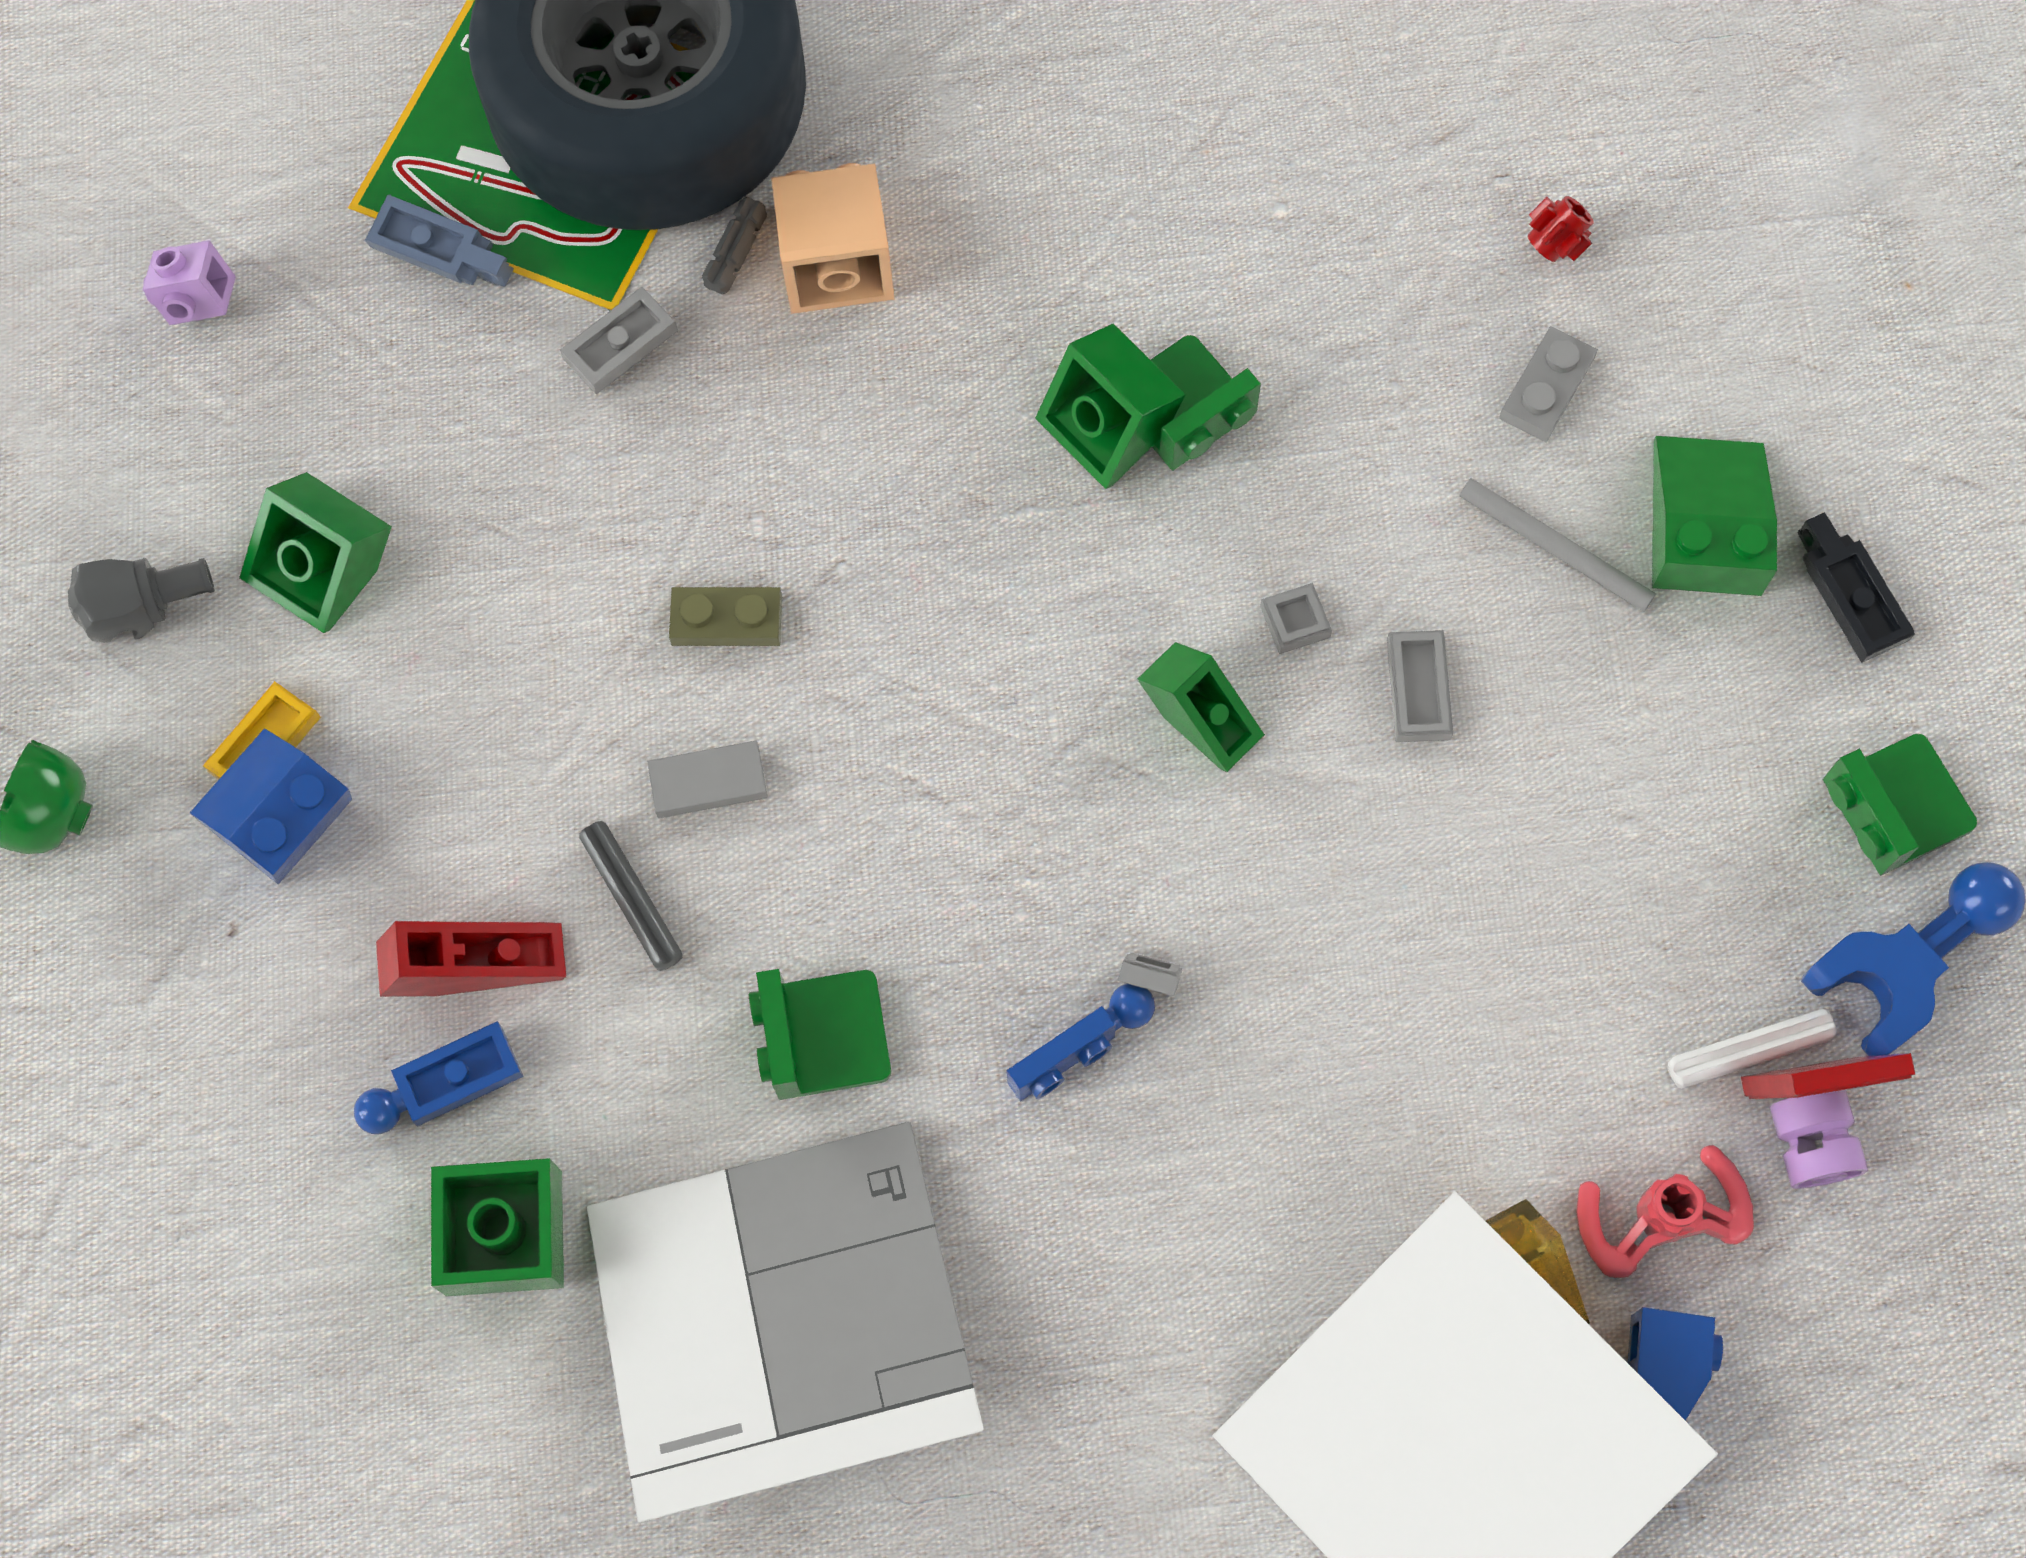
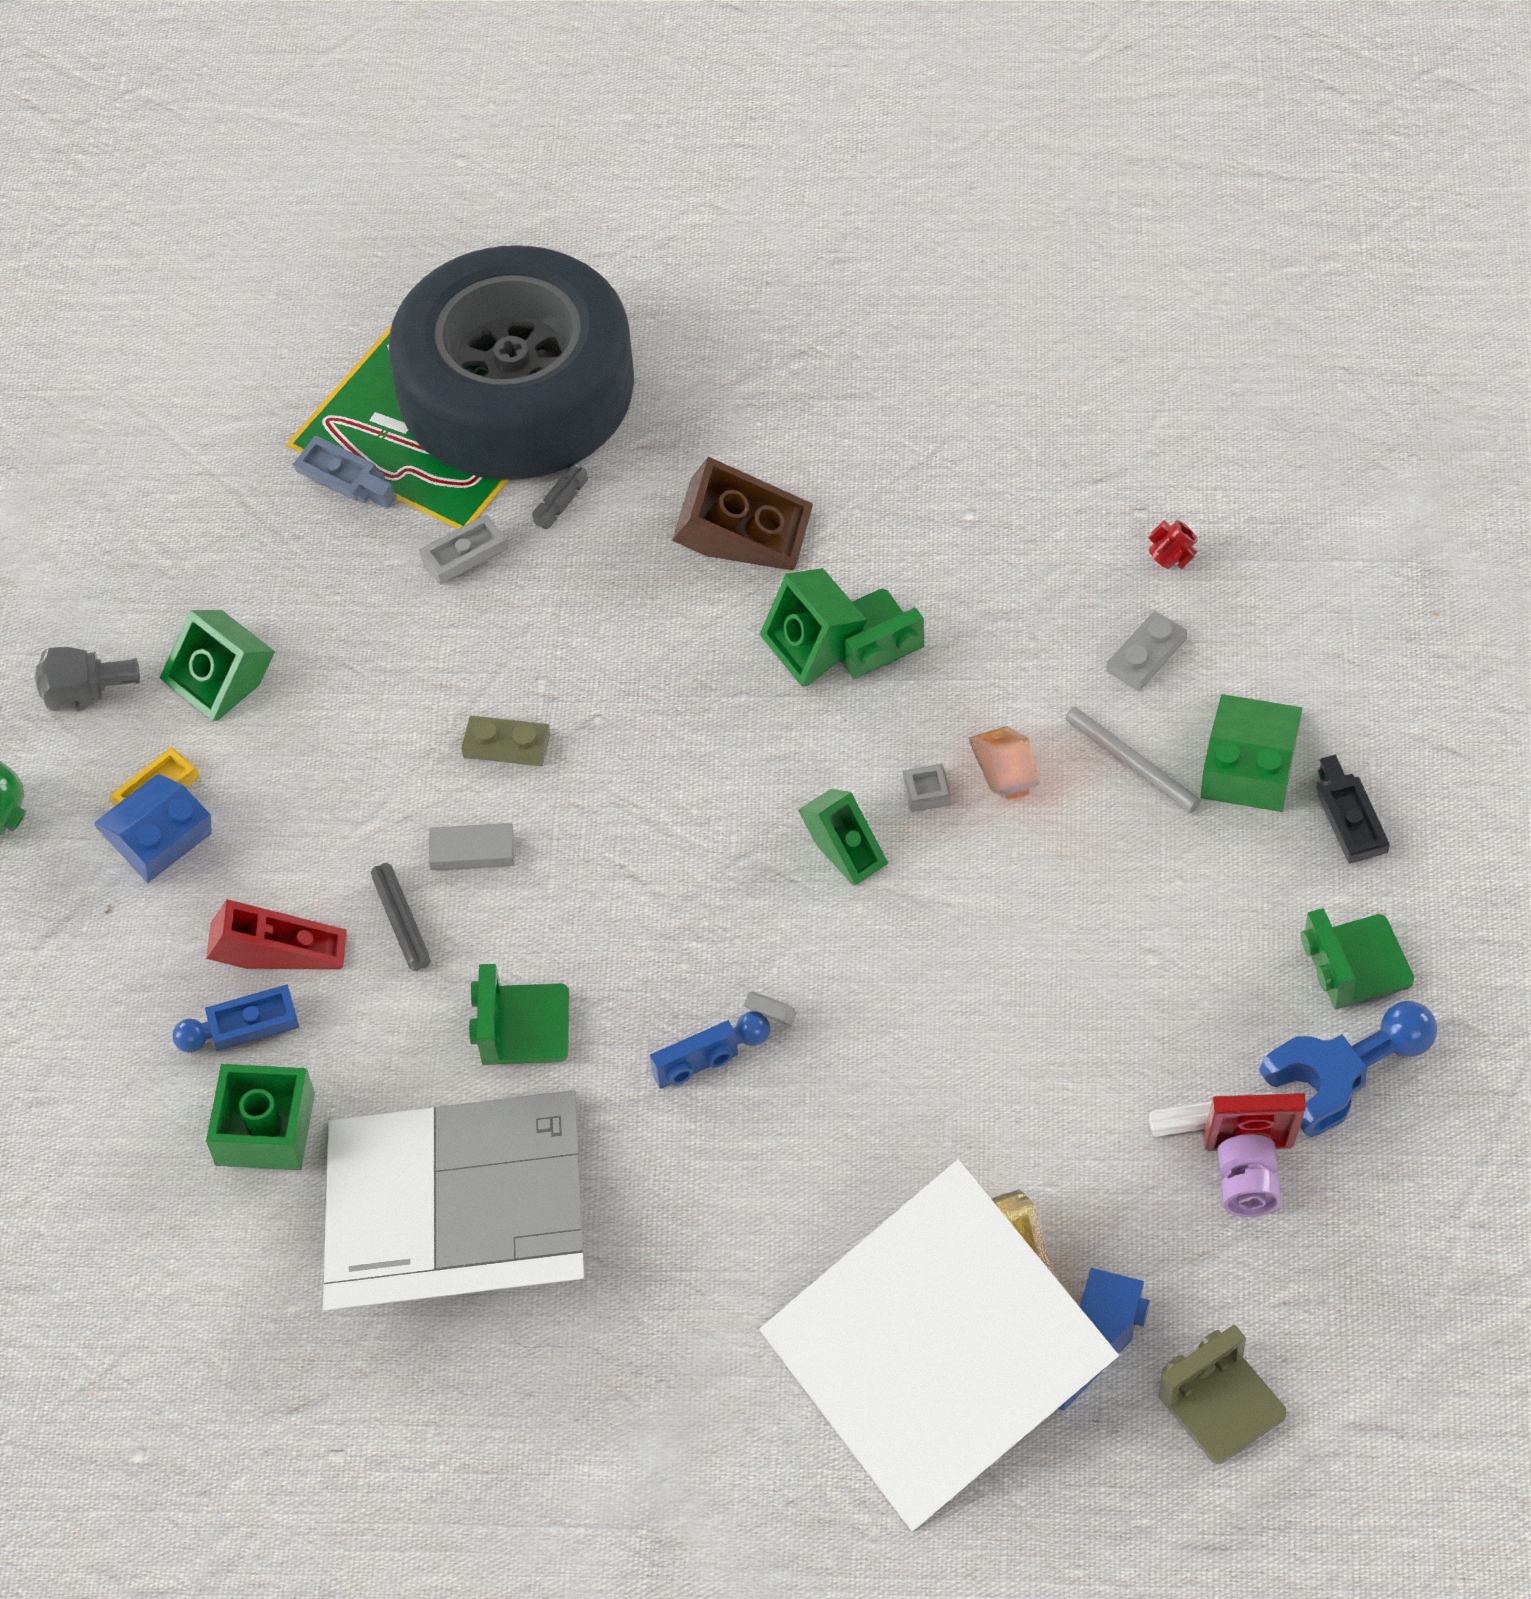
camera: 10 degrees right, 15 degrees down
(189, 282) = (161, 477): lavender brick -> none
(832, 238) = (631, 497): light nougat slope -> none
(984, 253) = (741, 518): none -> reddish brown slope
(1395, 570) = (1006, 761): none -> clear orange slope
(1419, 686) = (1010, 843): light grey tile -> none
(1661, 1227) = (1127, 1216): coral piece -> none
(1836, 1463) = (1220, 1396): none -> olive bracket

